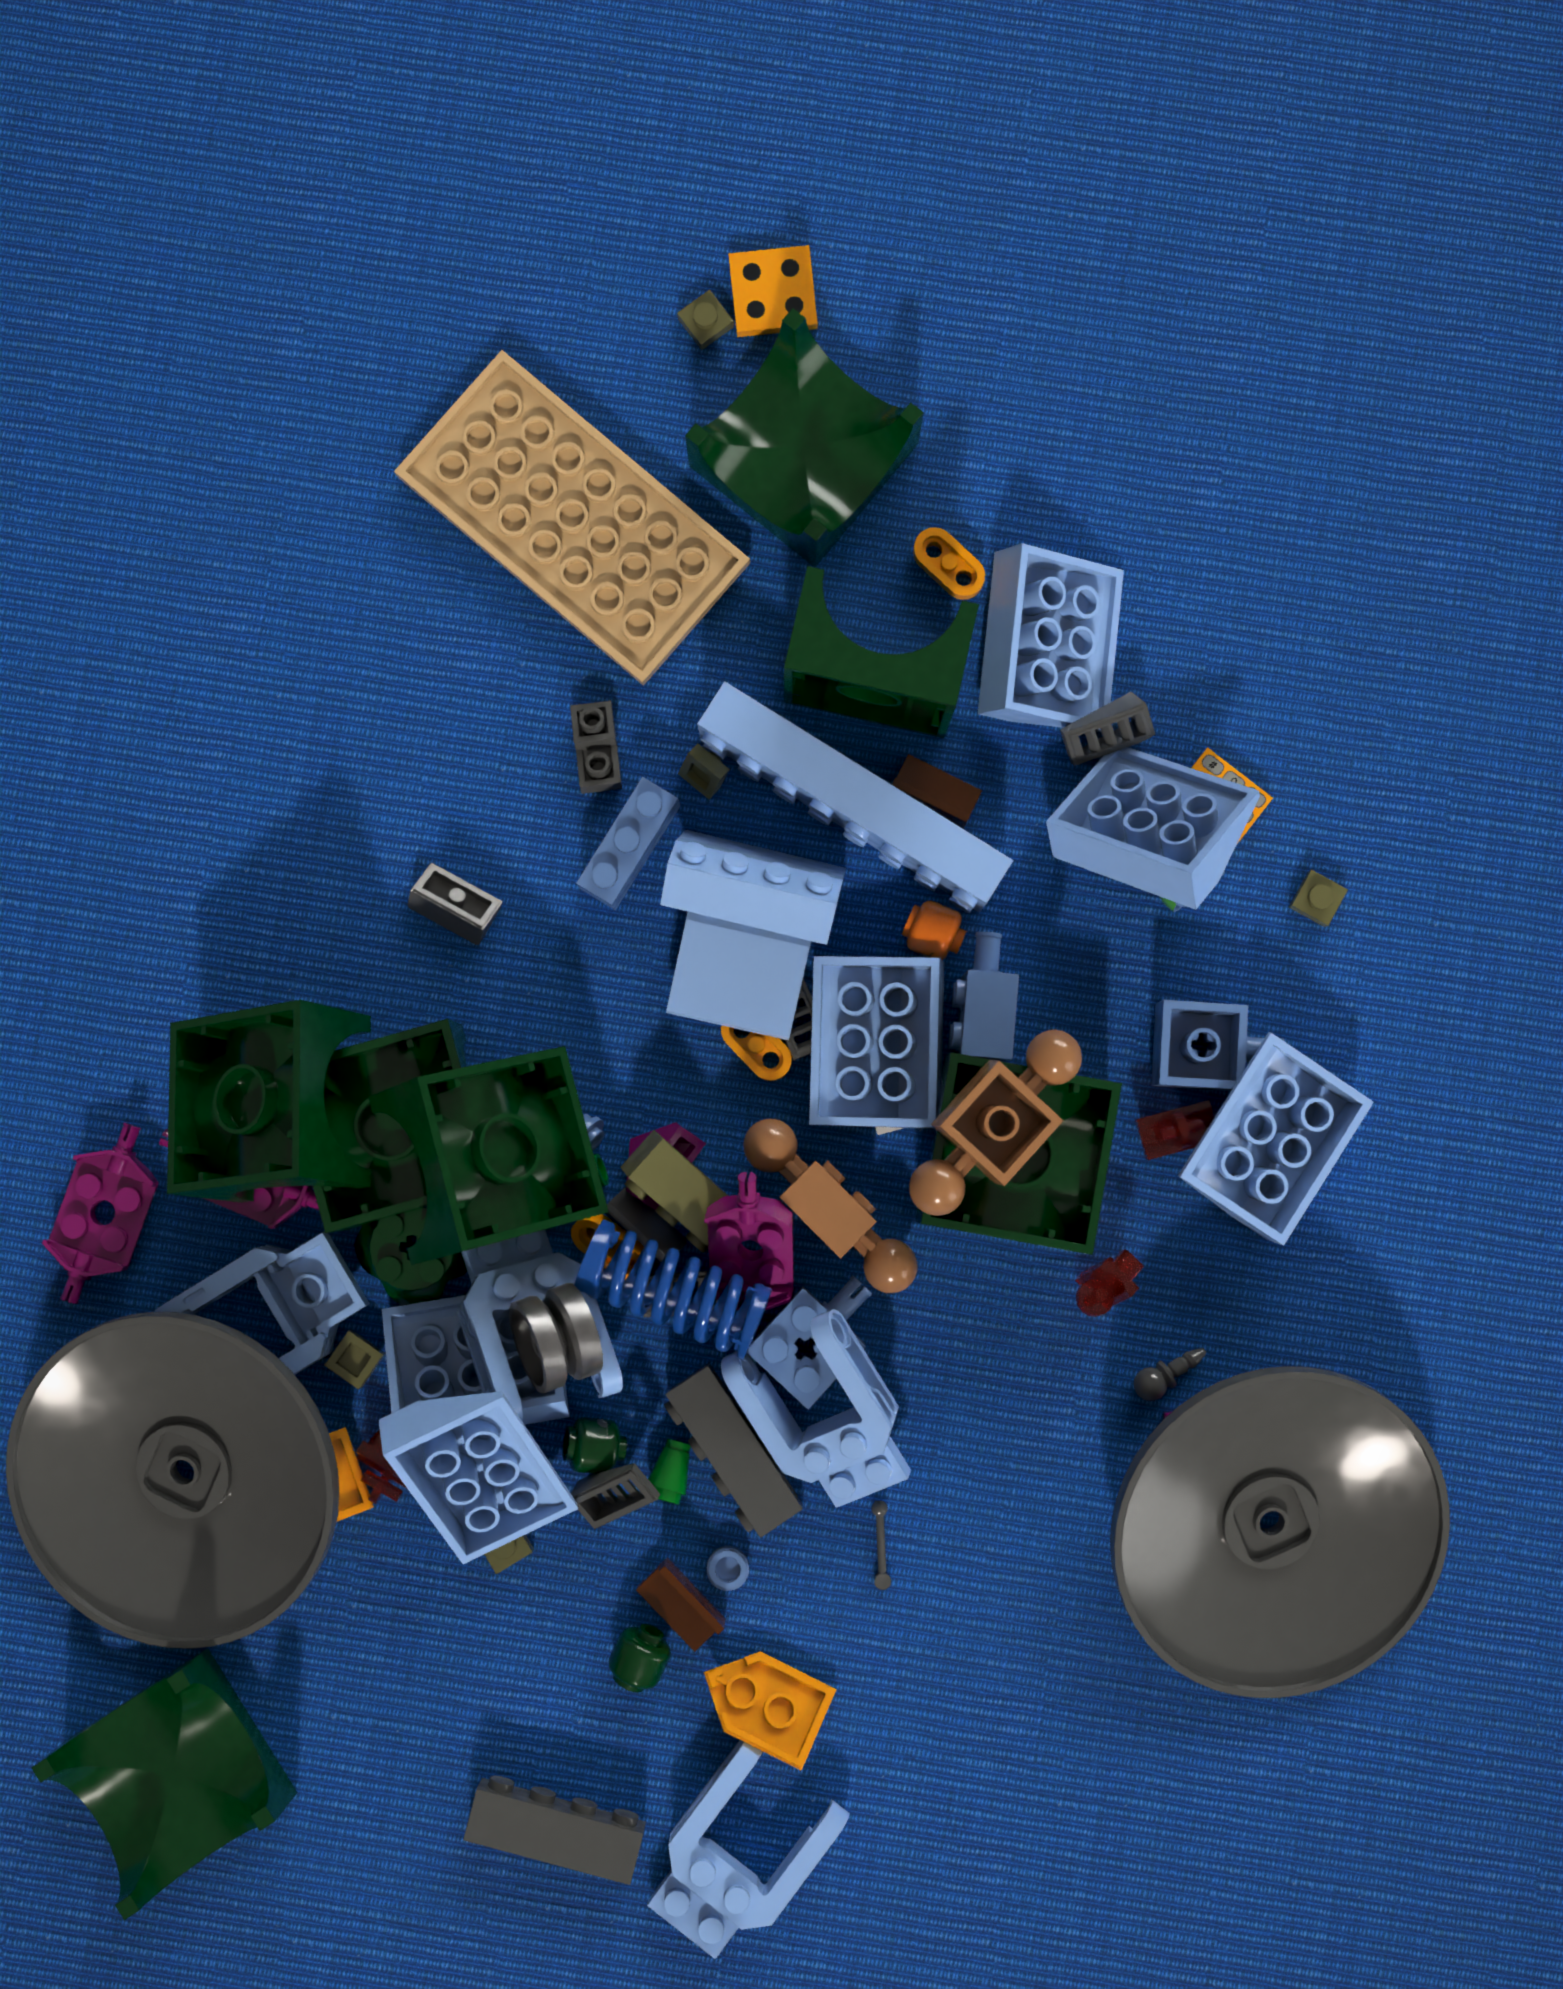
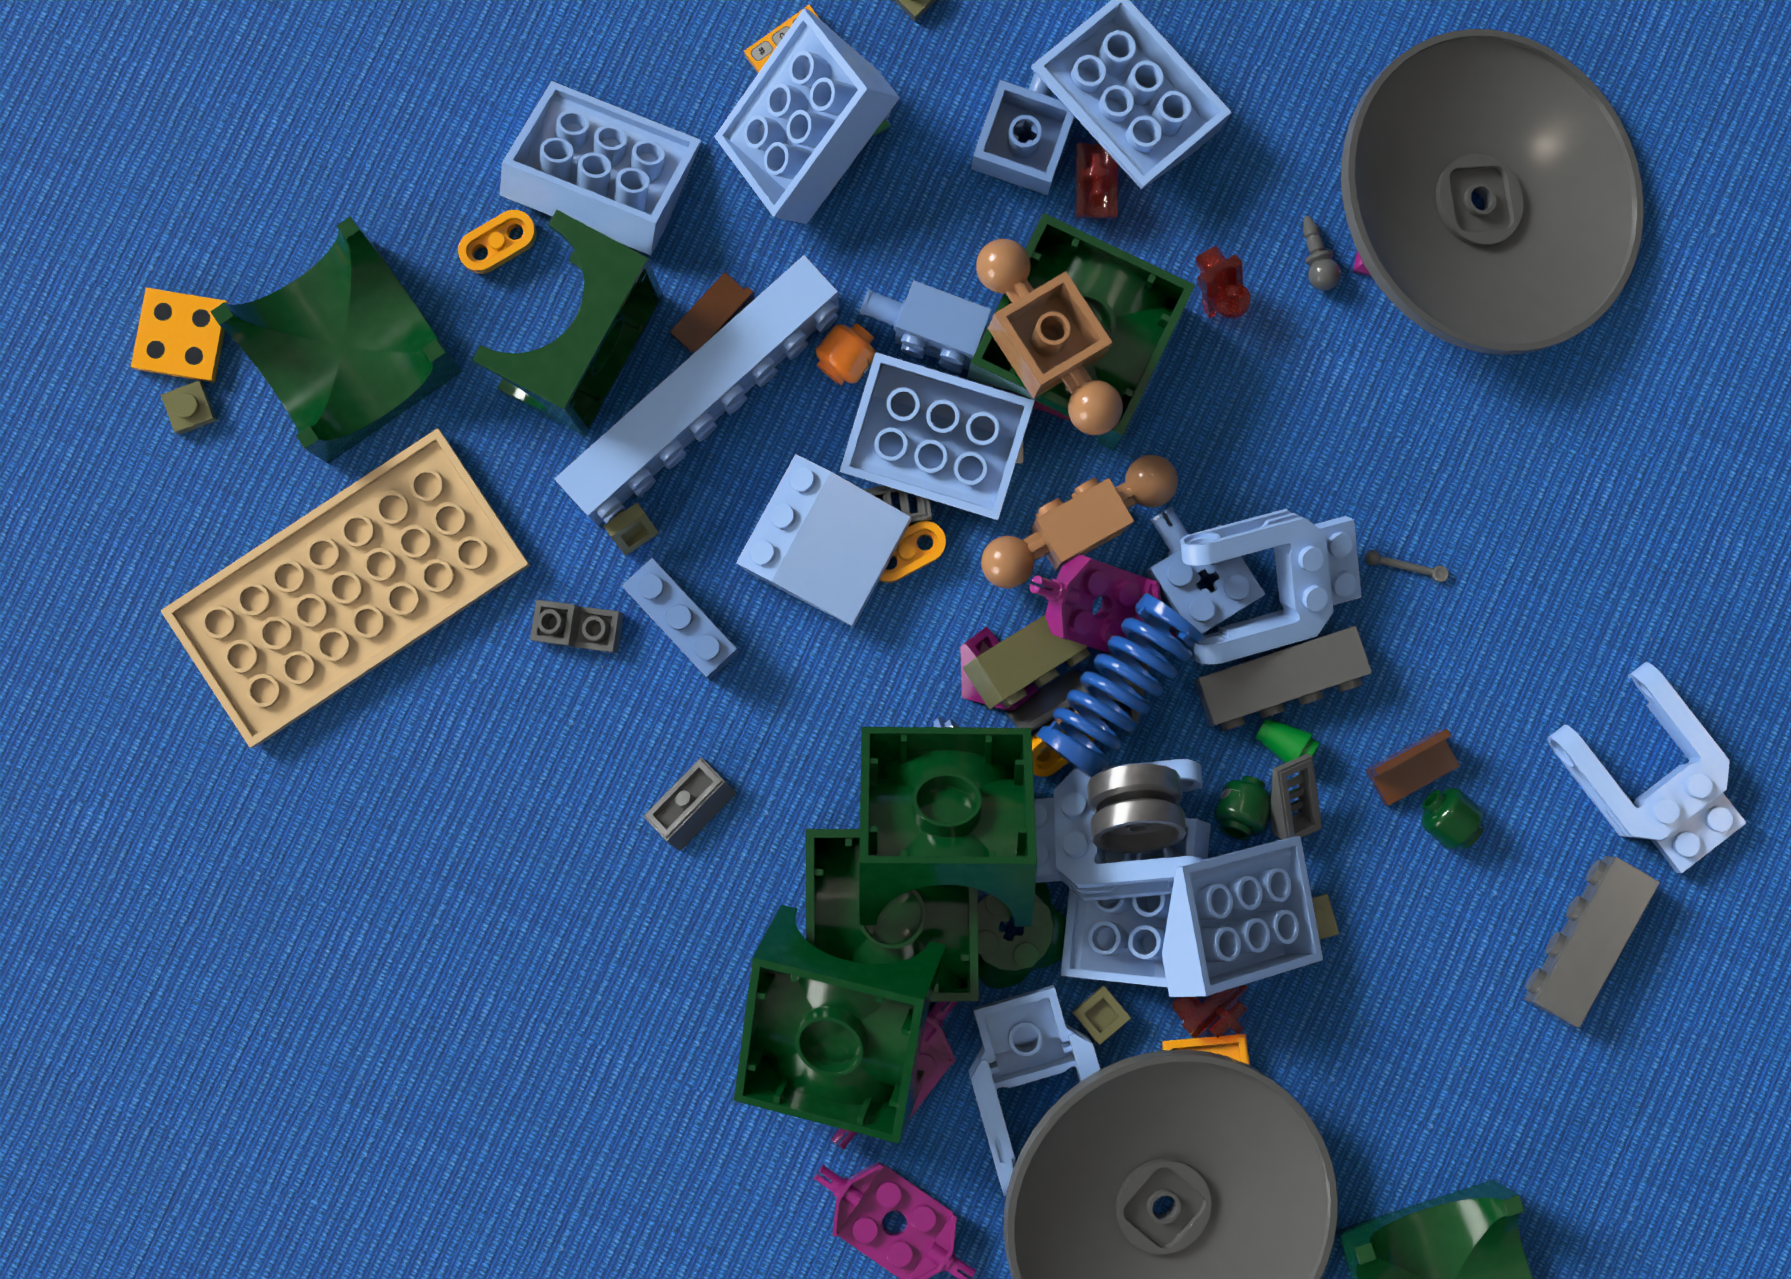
camera: 80 degrees left, 0 degrees up
(727, 1568) = (1390, 714): medium blue tile -> none
(752, 886) = (759, 505): light blue slope -> none
(770, 1705) = (1528, 708): light orange tile -> none
(1113, 740) = (705, 112): dark grey slope -> none

